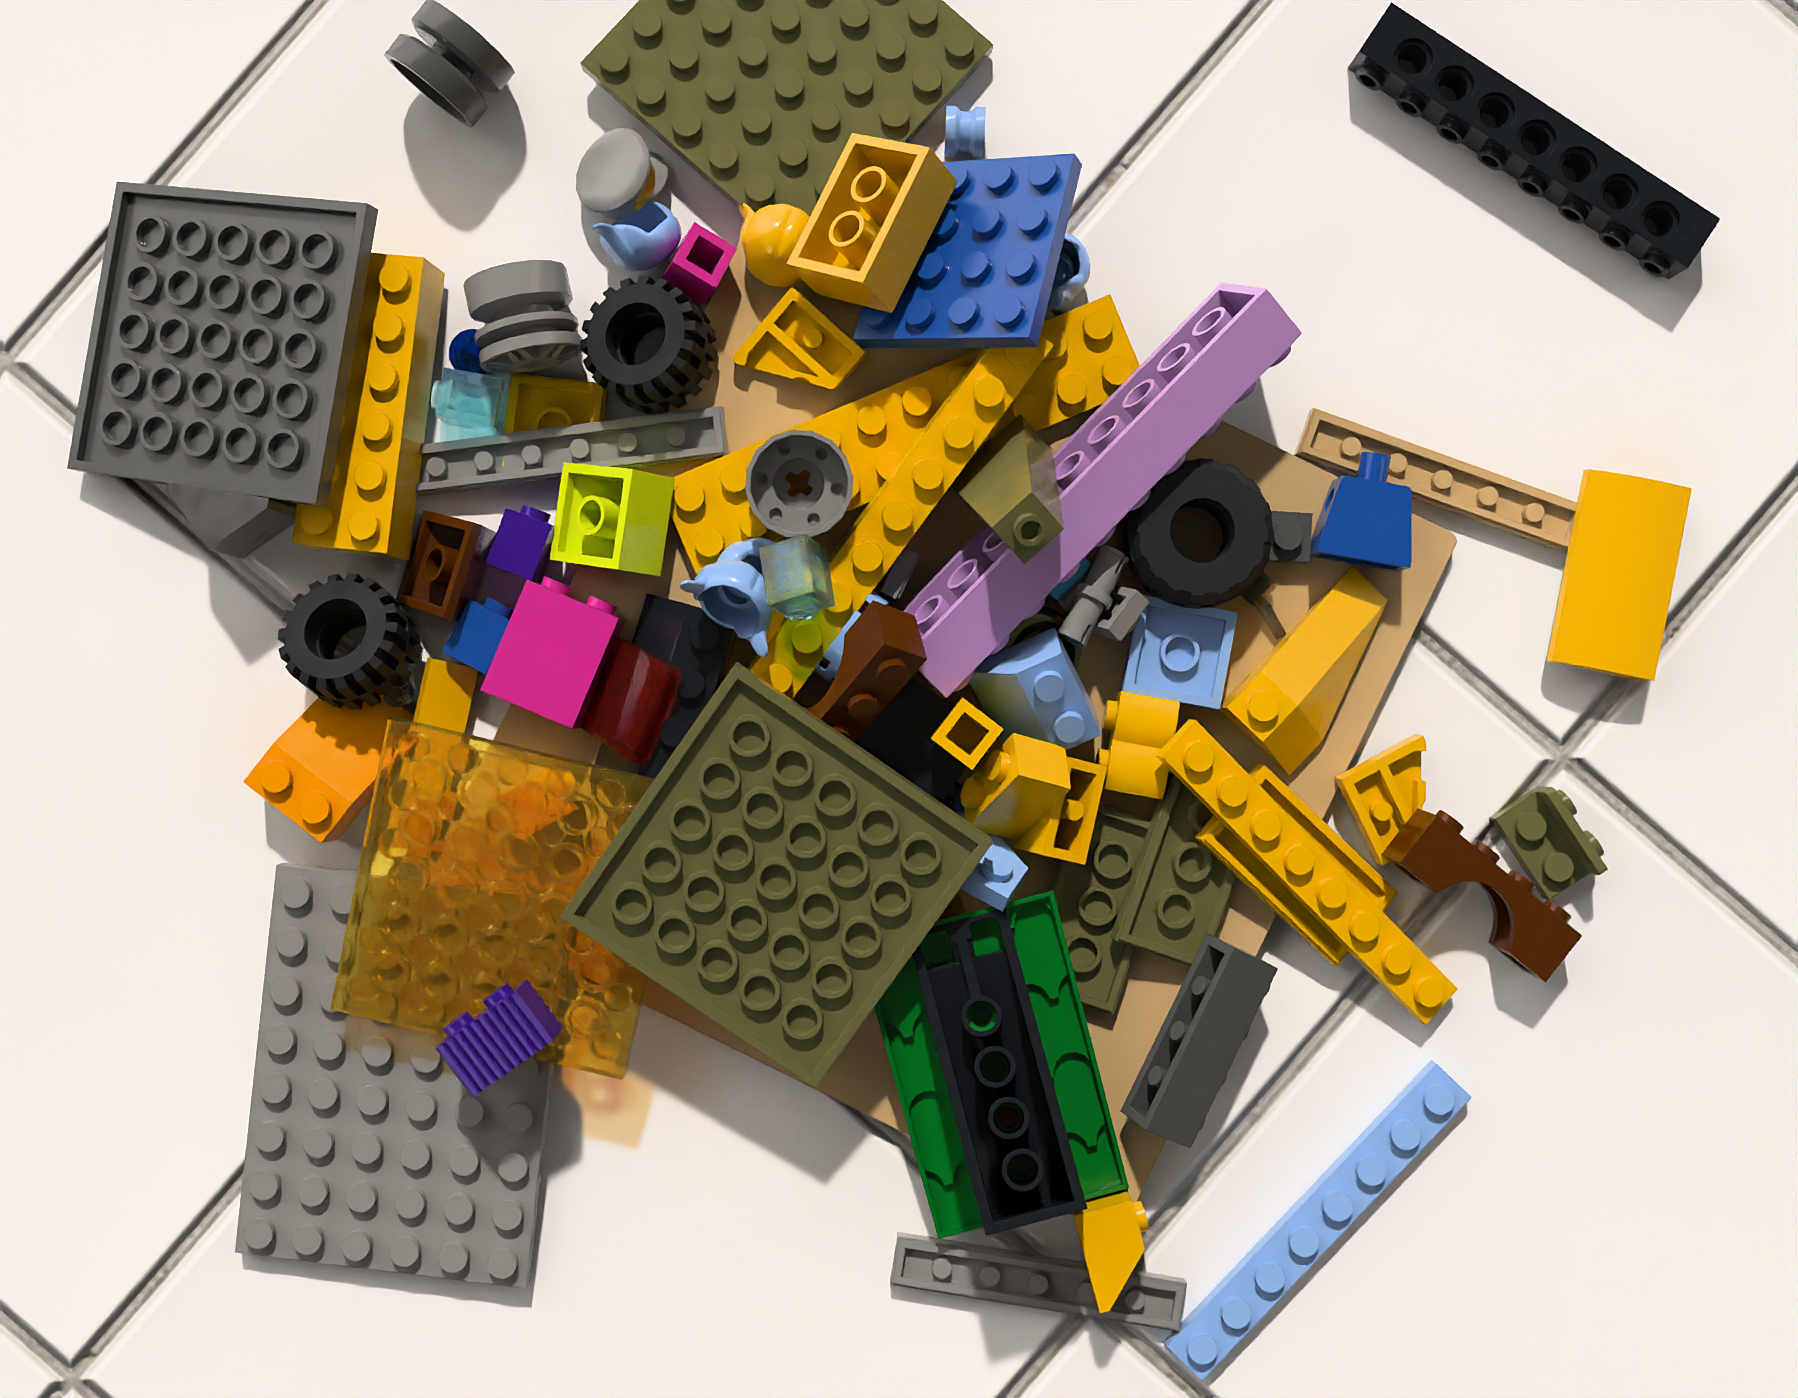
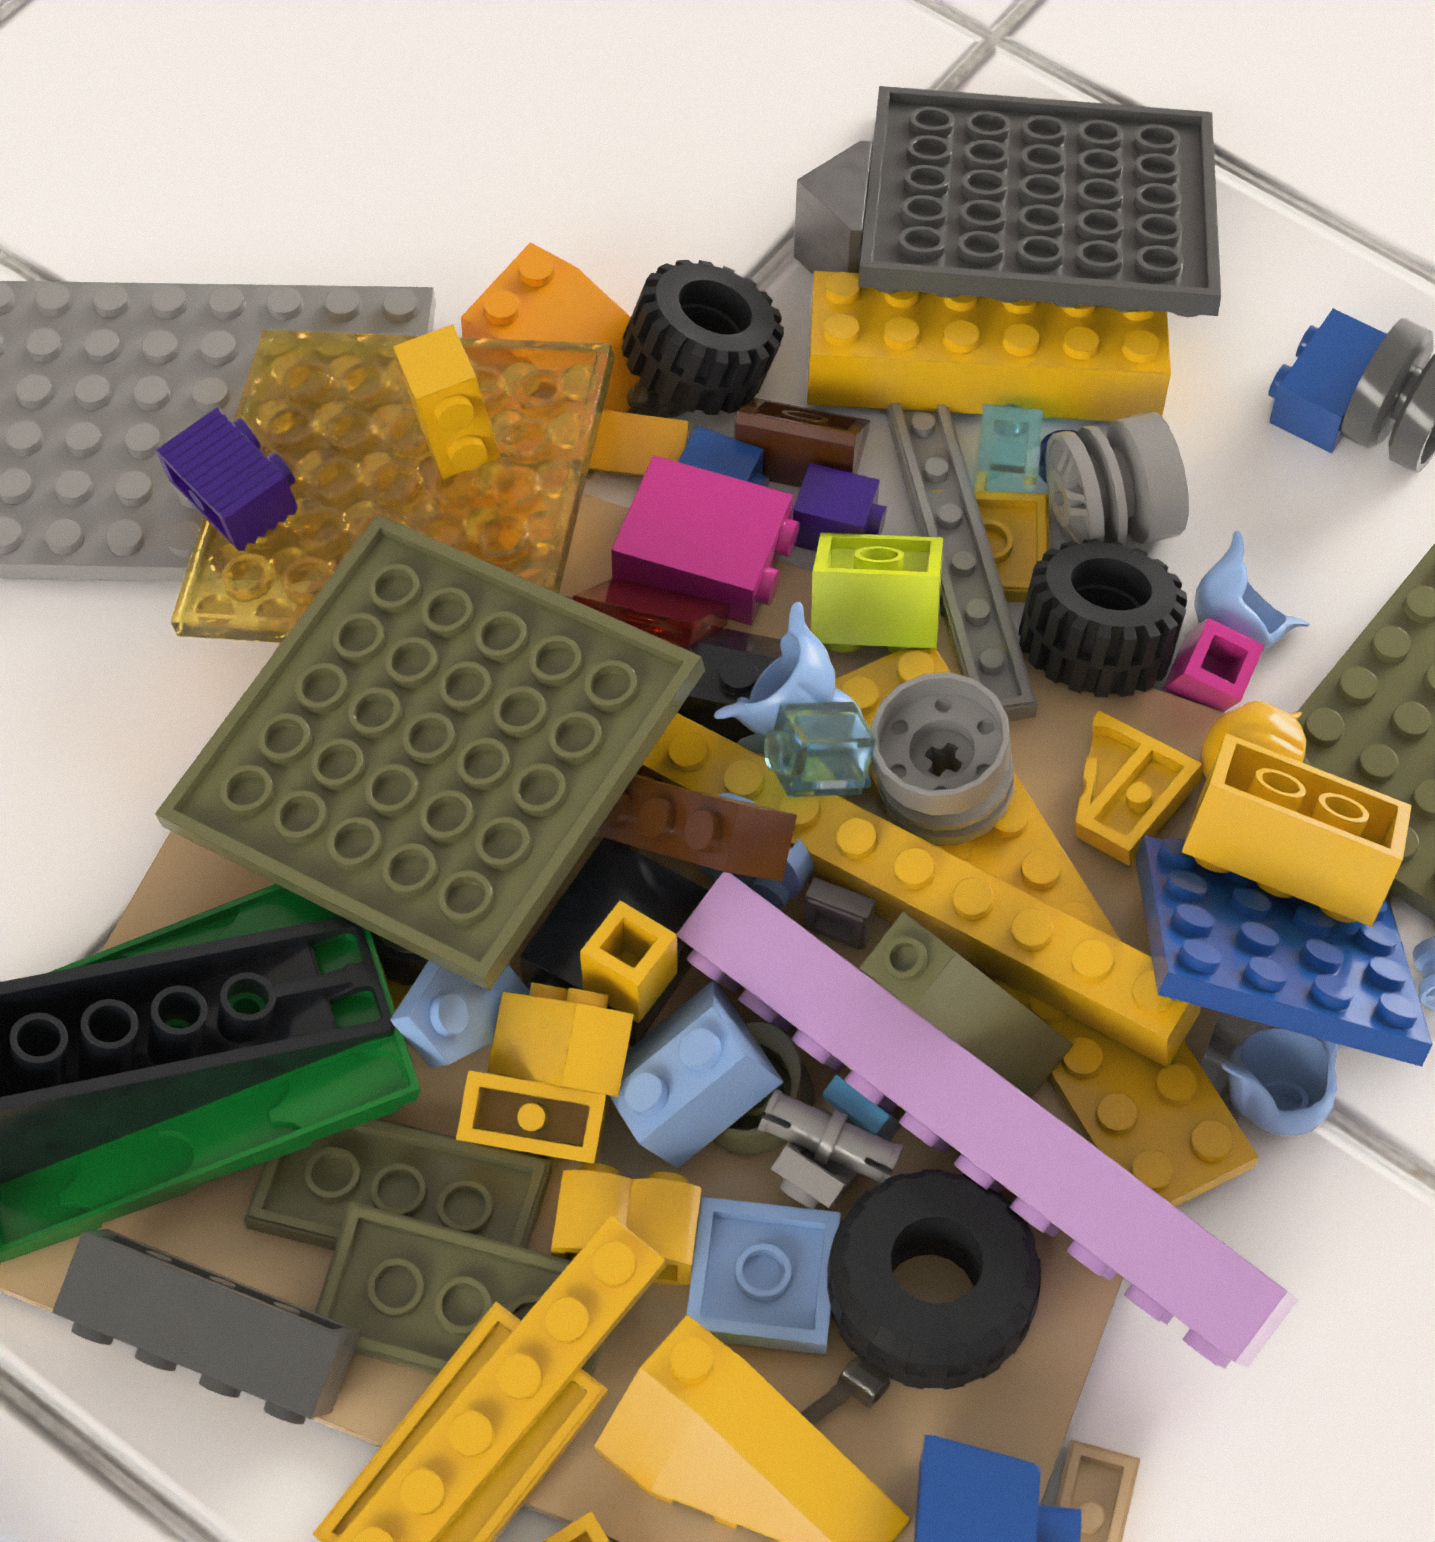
camera: 85 degrees right, 30 degrees down
(415, 126) = (1321, 382): none -> blue brick
(461, 858) = (447, 401): none -> yellow brick
(619, 174) = (1313, 587): light grey piece -> none
(1291, 537) = (943, 1412): dark grey plate -> none

